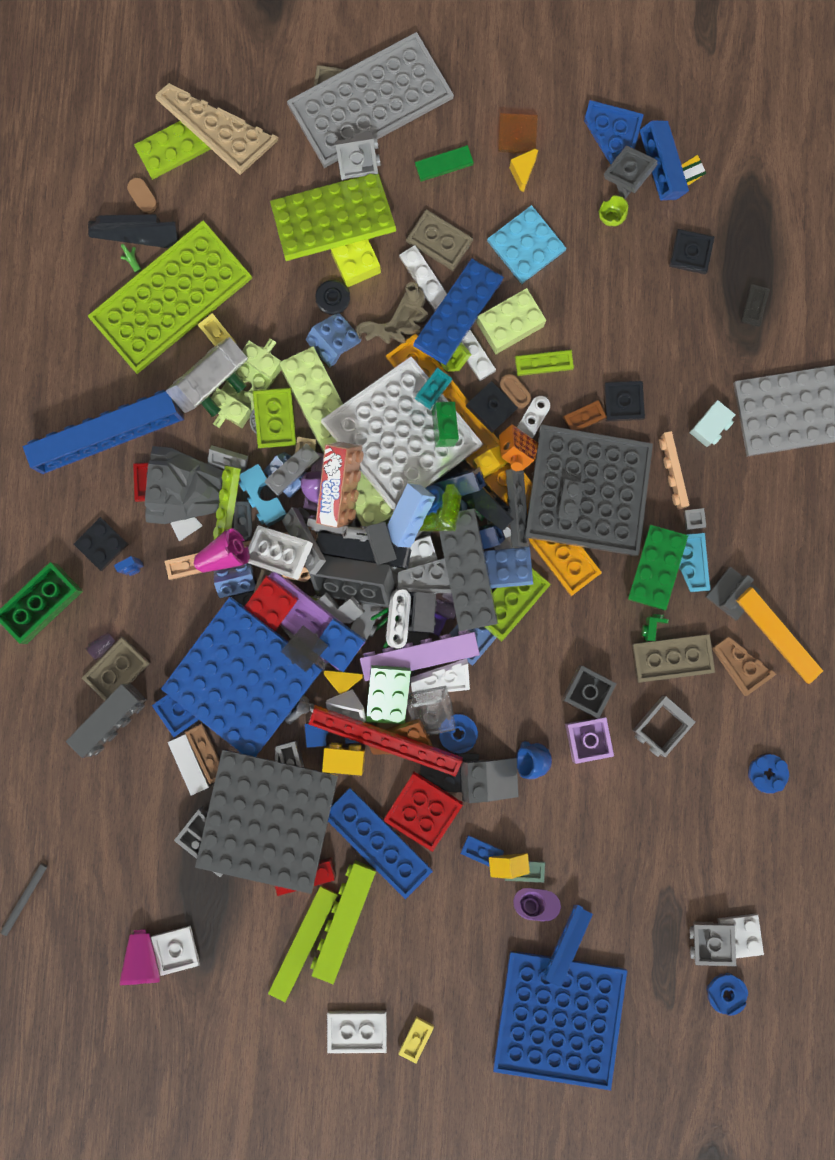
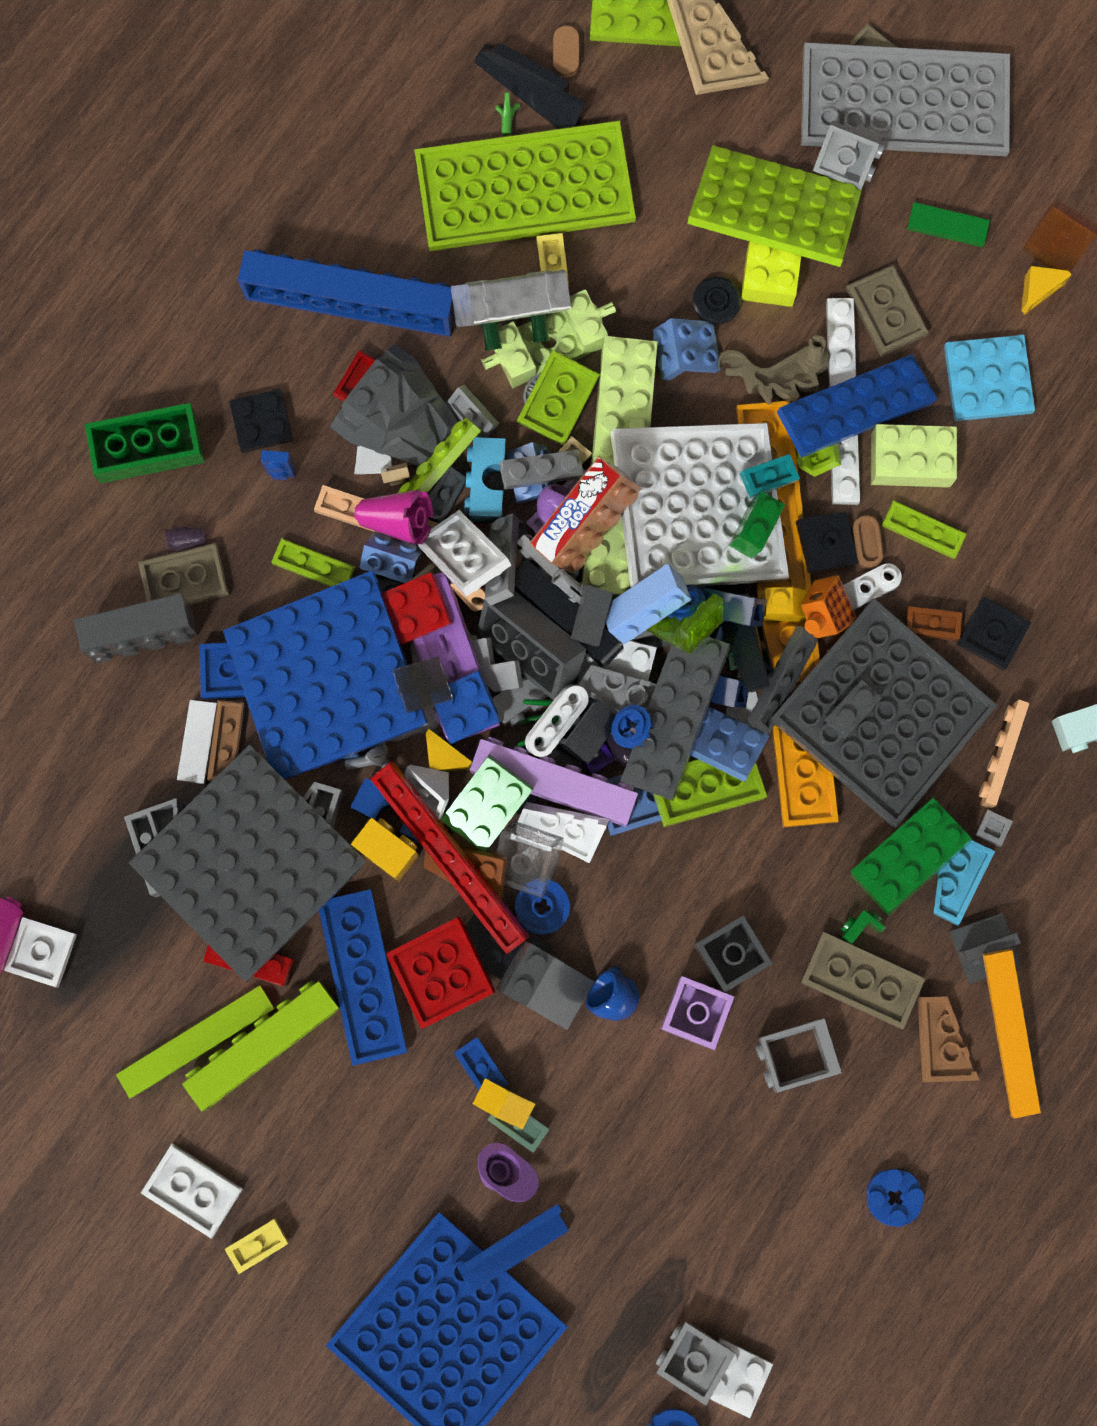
camera: 30 degrees right, 5 degrees down
(189, 613) = (311, 564): none -> lime tile
(205, 526) = (395, 474): none -> tan plate
(440, 598) = (622, 725): none -> blue gear

